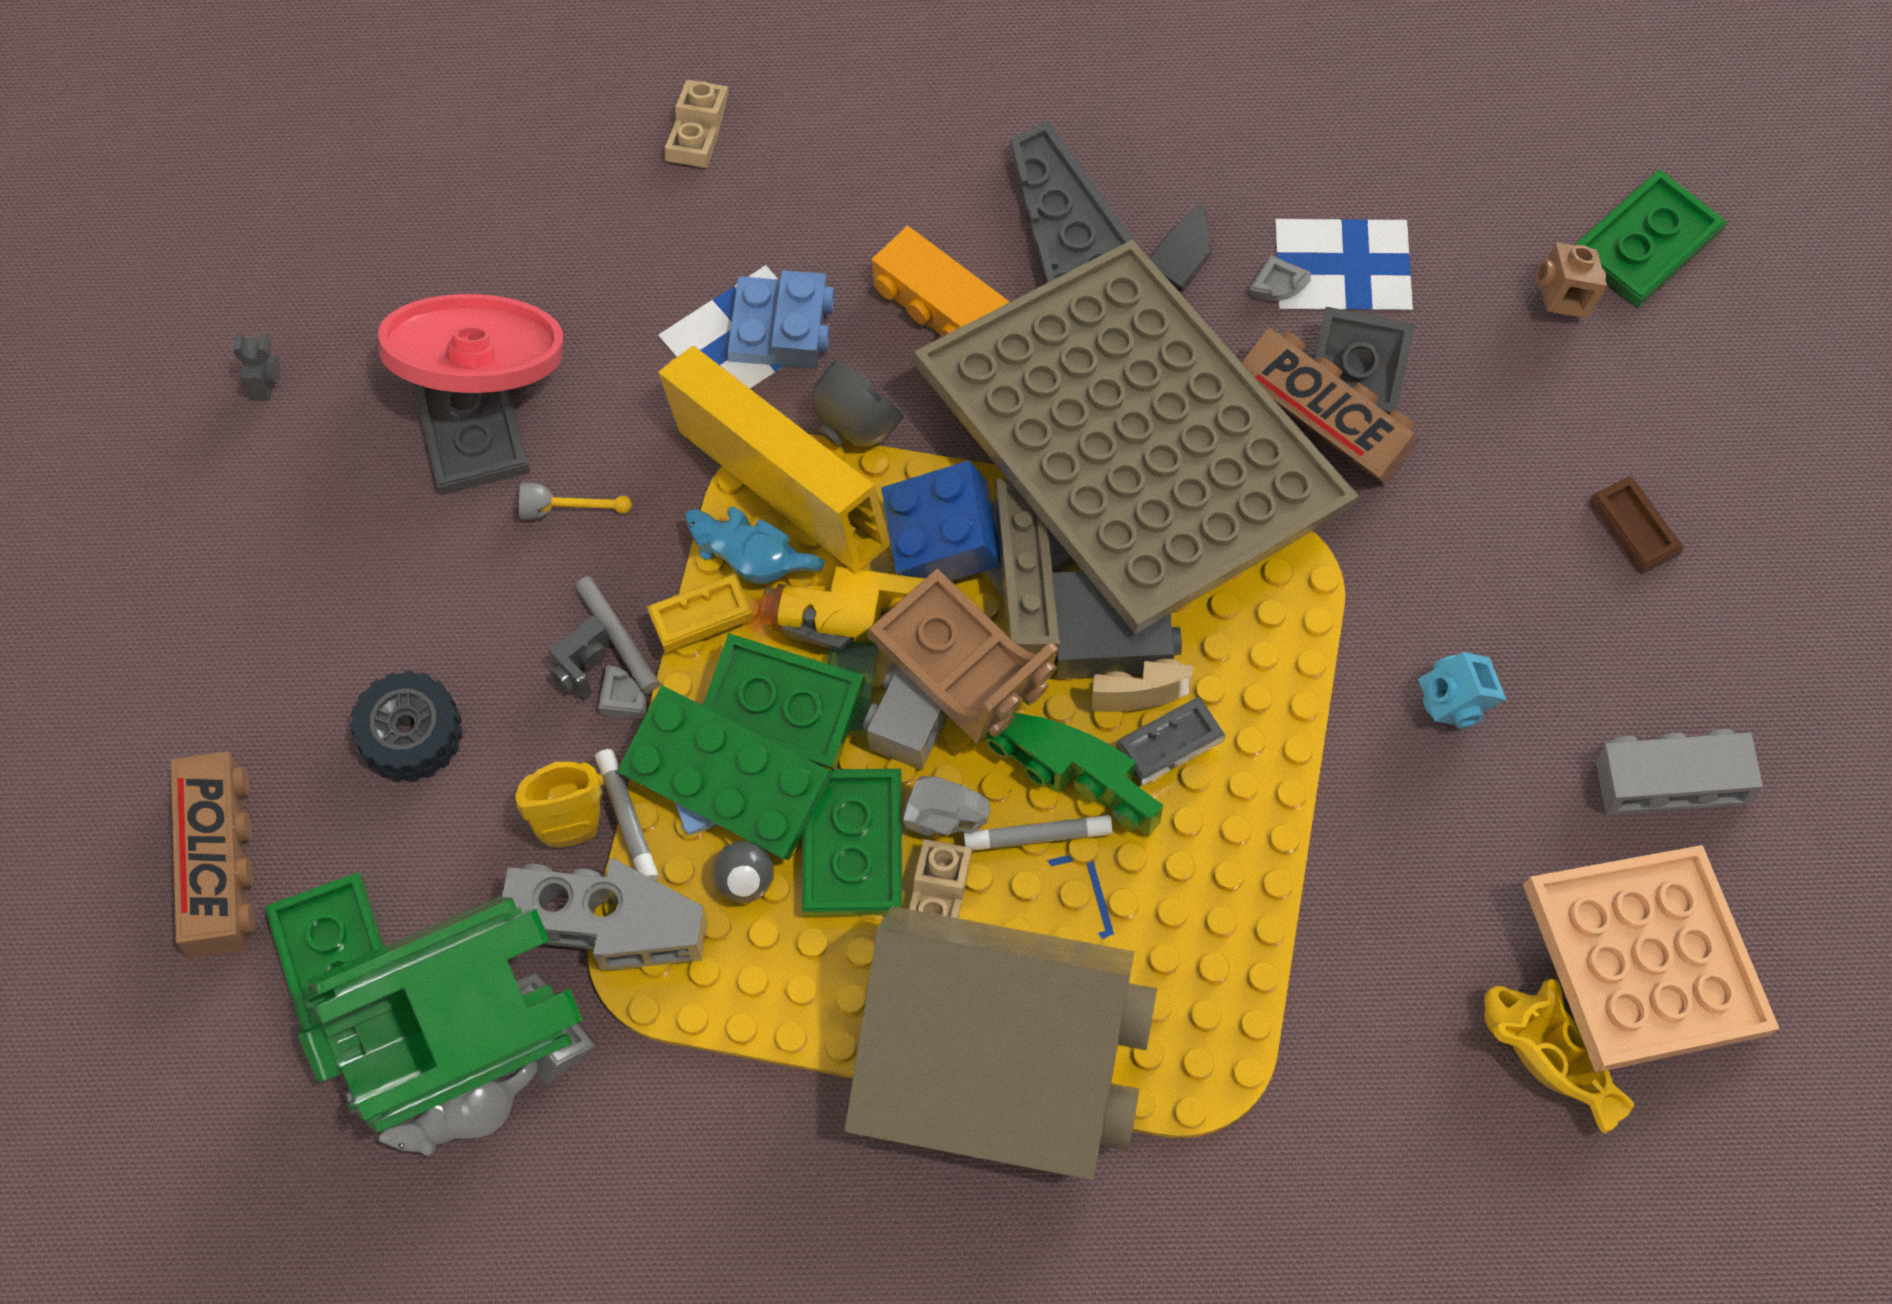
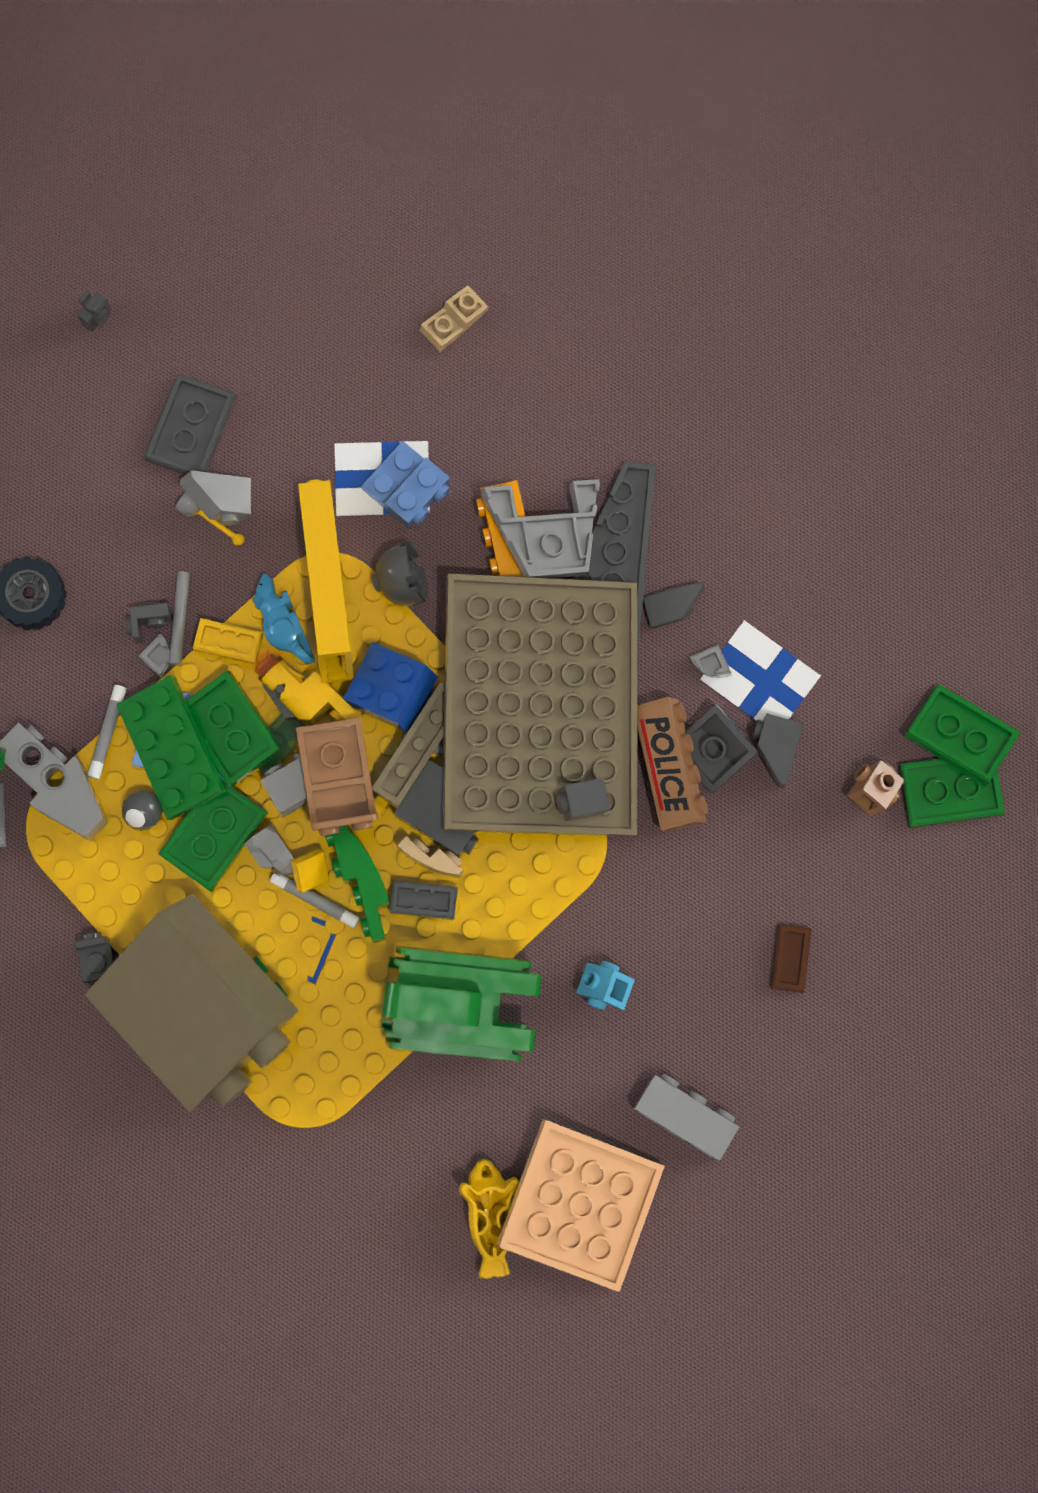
camera: 30 degrees right, 15 degrees up
(470, 343) = (215, 384): coral dish -> none
(562, 803) = (75, 699): yellow helmet -> none
(564, 461) = (219, 495): none -> light grey slope
(813, 1096) = (94, 956): none -> dark grey bracket
(941, 878) = (237, 894): tan slope -> none
(990, 263) = (547, 543): none -> light grey wing
(1007, 797) = (310, 870): none -> yellow tile
(1272, 486) = (583, 799): none -> dark grey brick
(1317, 812) = (453, 1001): none -> green piece
(1432, 305) = (778, 745): none -> dark grey slope
(1612, 172) = (962, 734): none -> green tile

